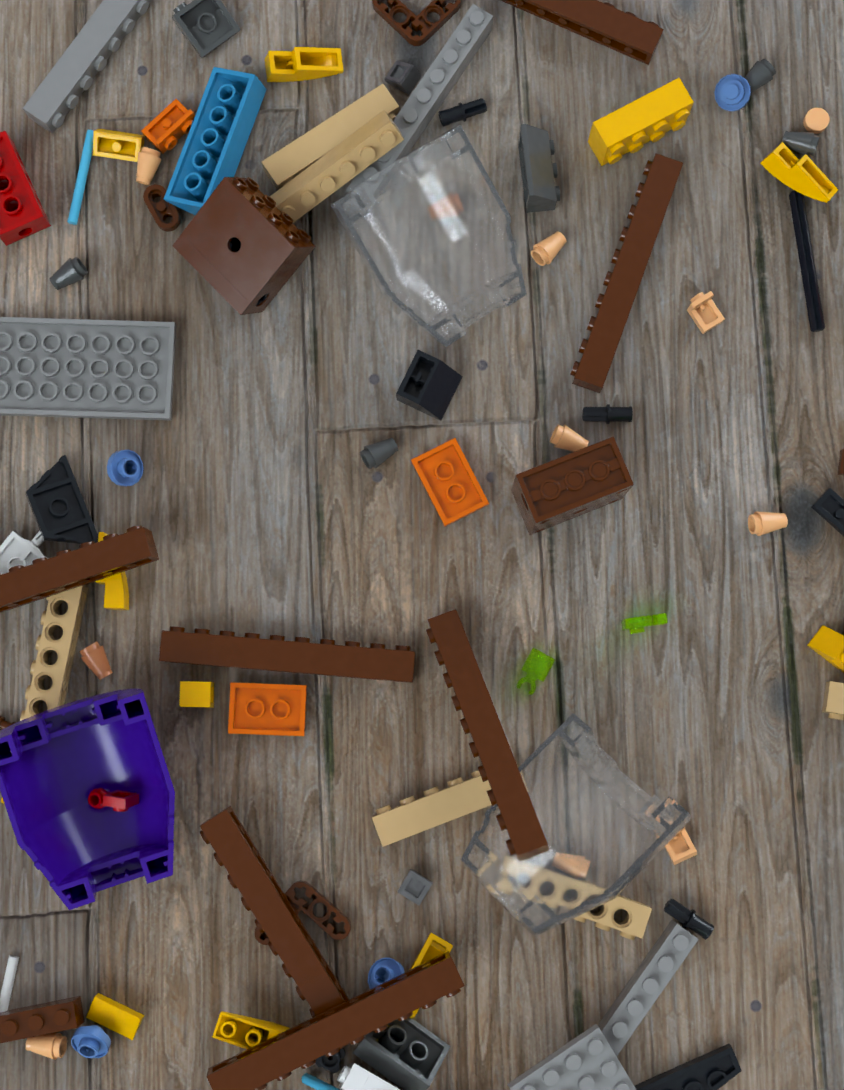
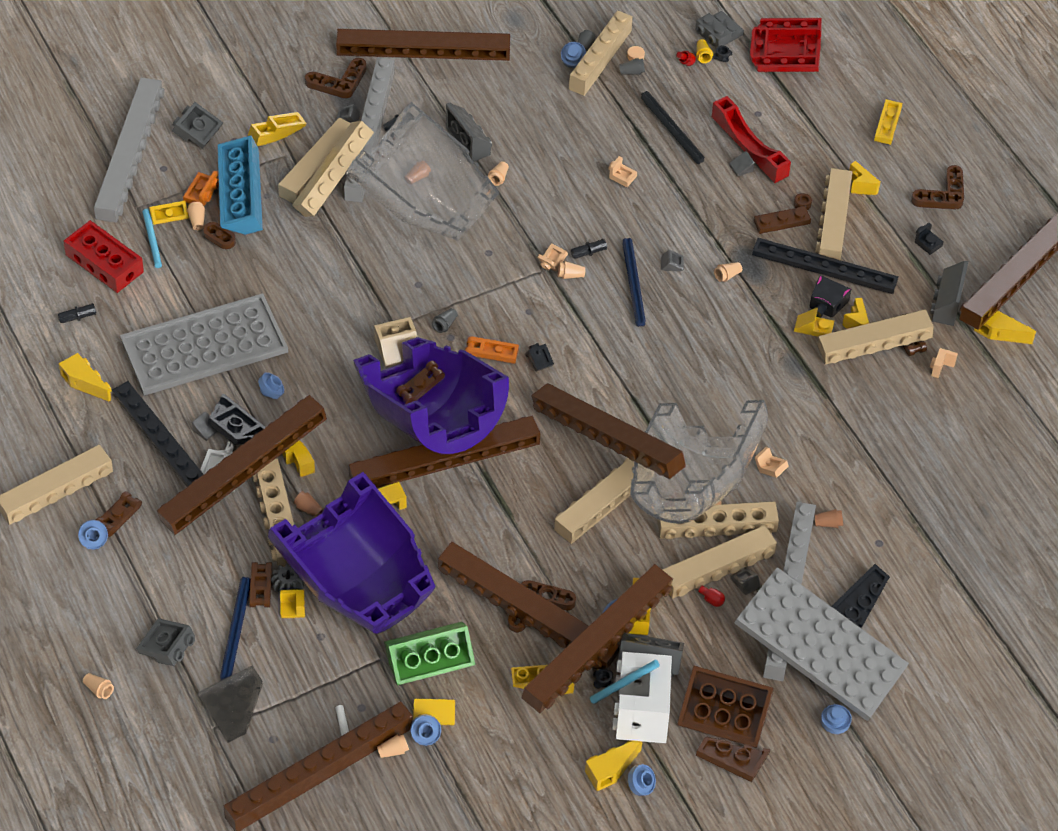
camera: 30 degrees left, 30 degrees down
(19, 490) = (202, 428): none -> flat silver slope
(69, 273) = (172, 292): dark grey cone -> none
(119, 800) = (368, 573): red plate -> none
(143, 933) = (430, 653): none -> bright green slope
(244, 245) = (293, 226): reddish brown gear -> none
(267, 709) = (446, 490): orange plate -> none
(291, 586) = (453, 412): none -> dark purple windscreen
(301, 545) = (421, 383): none -> reddish brown plate
(303, 467) = (390, 338): none -> tan slope
(415, 887) = (607, 555): flat silver plate -> none
(416, 522) = (492, 349): none -> orange plate
(428, 385) = (459, 270): black slope -> none
(450, 482) = (503, 320): orange plate -> none
(468, 557) = (539, 356): none -> black bracket
(514, 999) = (712, 596): none -> red cylinder
(537, 667) = (620, 404): clear neon green plate -> none
(544, 957) = (721, 561): none -> tan brick
(554, 411) = (552, 257): none -> light nougat bracket
(566, 991) = (746, 581): none -> flat silver slope
(571, 485) = (587, 280): reddish brown gear -> none
(627, 273) = (559, 170): reddish brown brick -> none
(637, 624) = (675, 352): clear neon green plate -> none
(640, 122) = (522, 85): yellow brick -> none
(640, 488) = (634, 284): none -> dark blue axle
(688, 918) = (790, 502): black axle -> none
(704, 475) = (672, 261): none -> flat silver slope
(711, 952) = (829, 519): none -> nougat cone
(770, 103) = (600, 53): none -> tan brick
(799, 174) = (640, 81): yellow slope -> none

